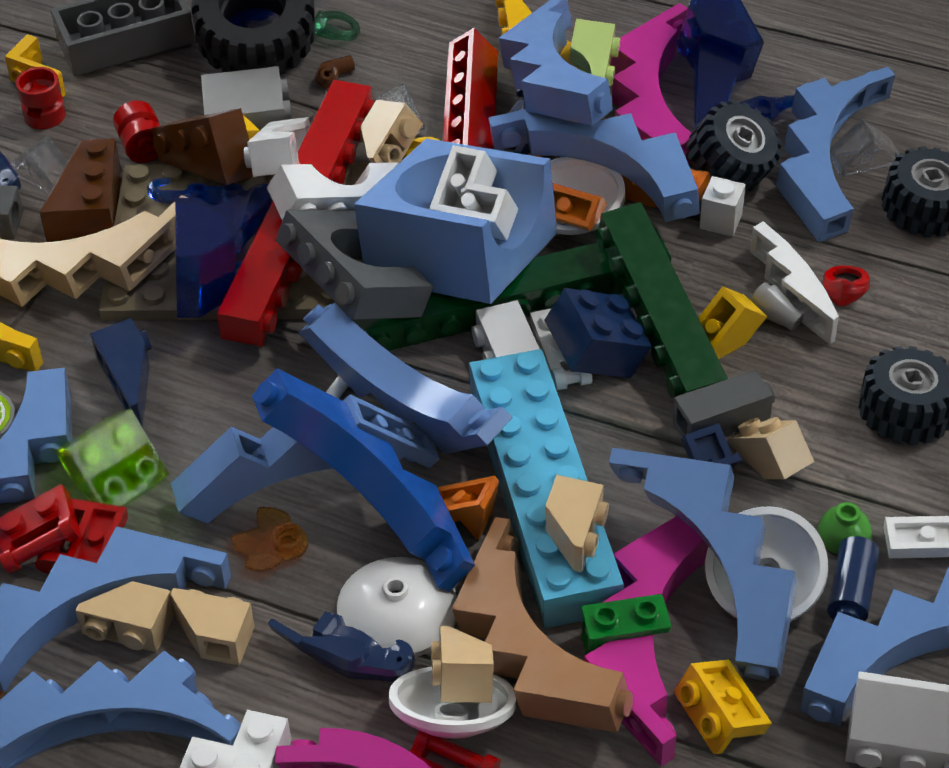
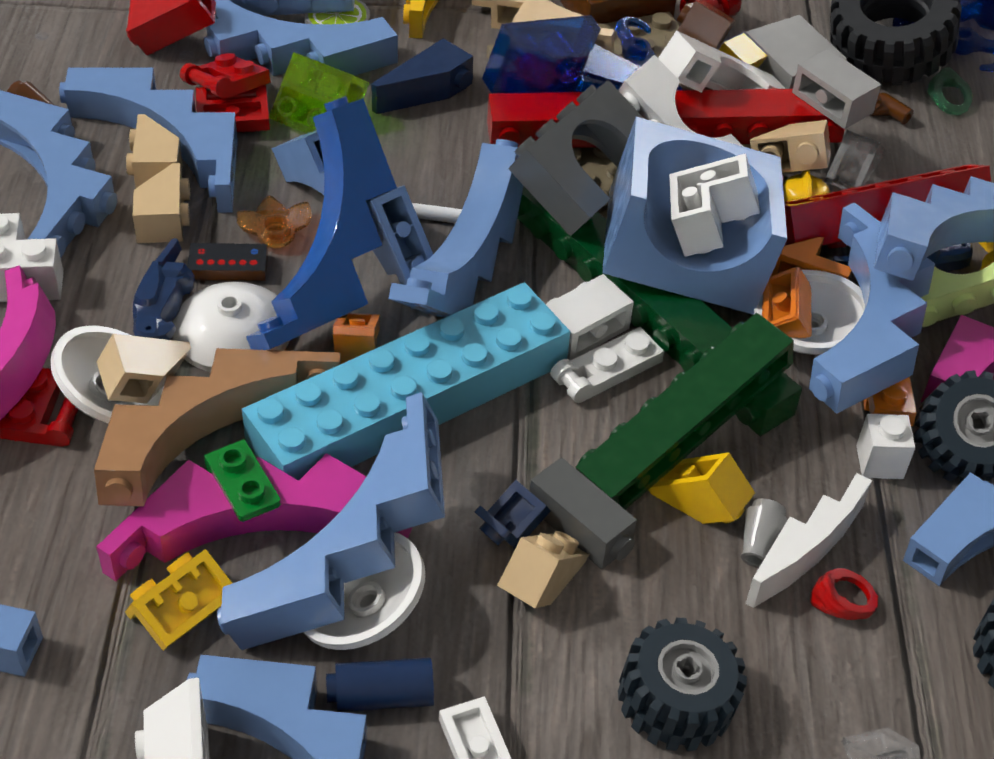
camera: 65 degrees right, 0 degrees up
(309, 590) = (228, 261): none -> black tile
(349, 77) = (836, 88): none -> light grey brick
(573, 516) = (326, 393): tan slope -> none
(597, 333) = (618, 372): dark blue brick -> none
(843, 522) = (463, 668): bright green brick -> none

